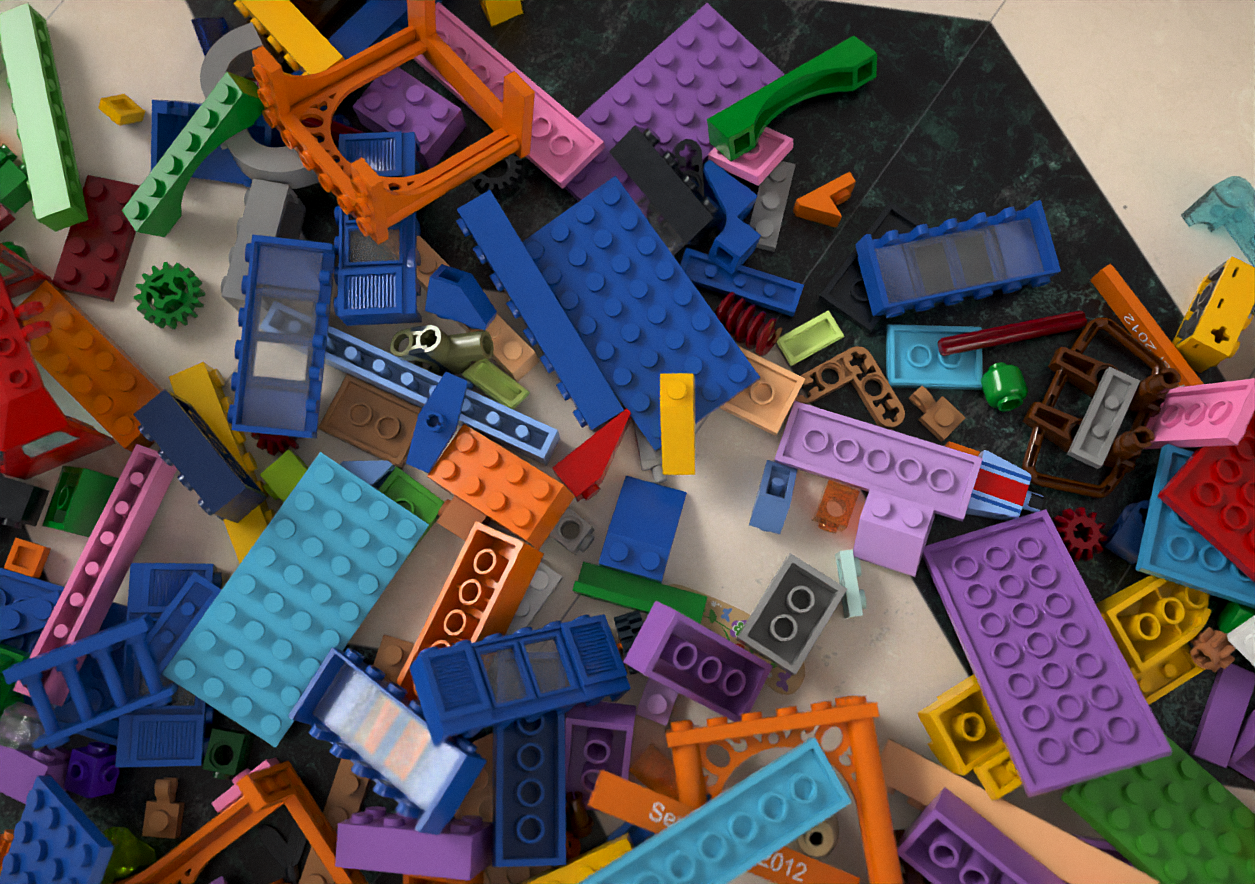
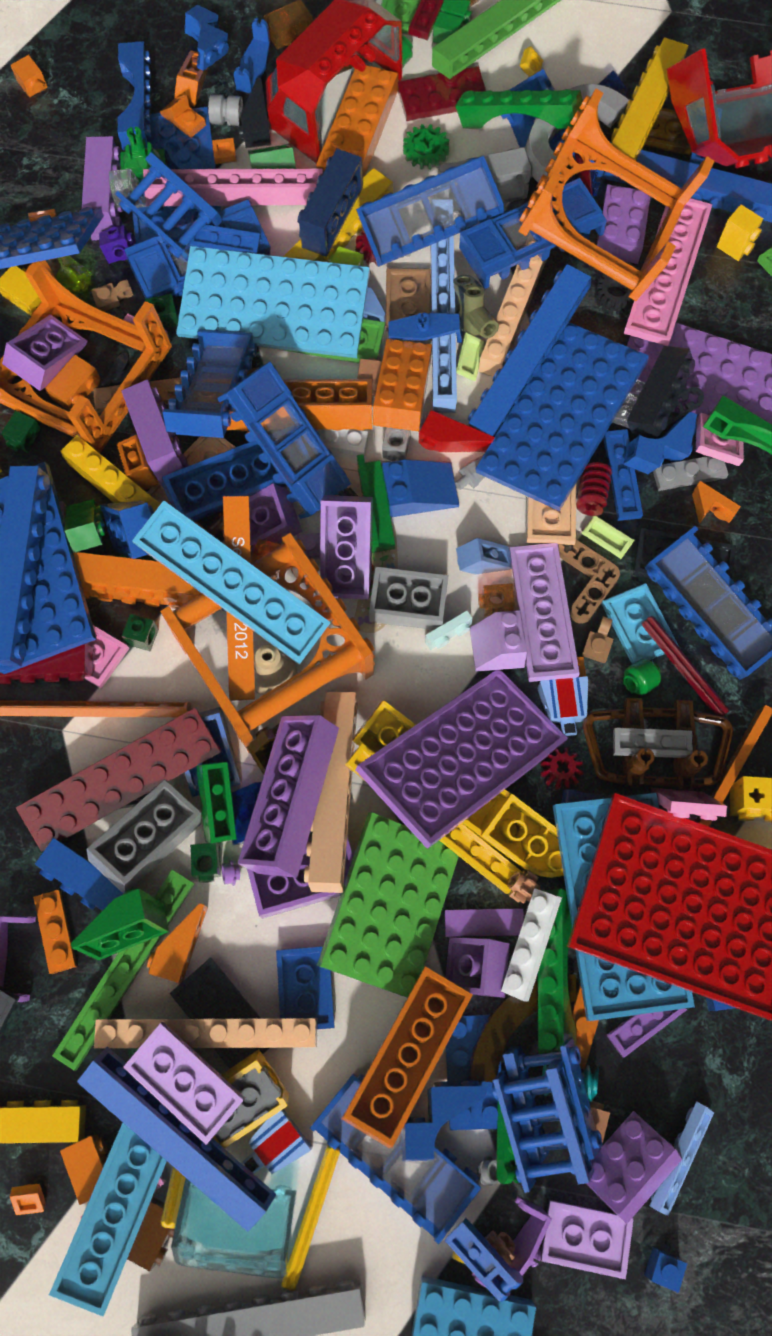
camera: 60 degrees right, 5 degrees down
(459, 297) = (510, 297): blue slope -> none
(677, 423) = (500, 466): yellow slope -> none

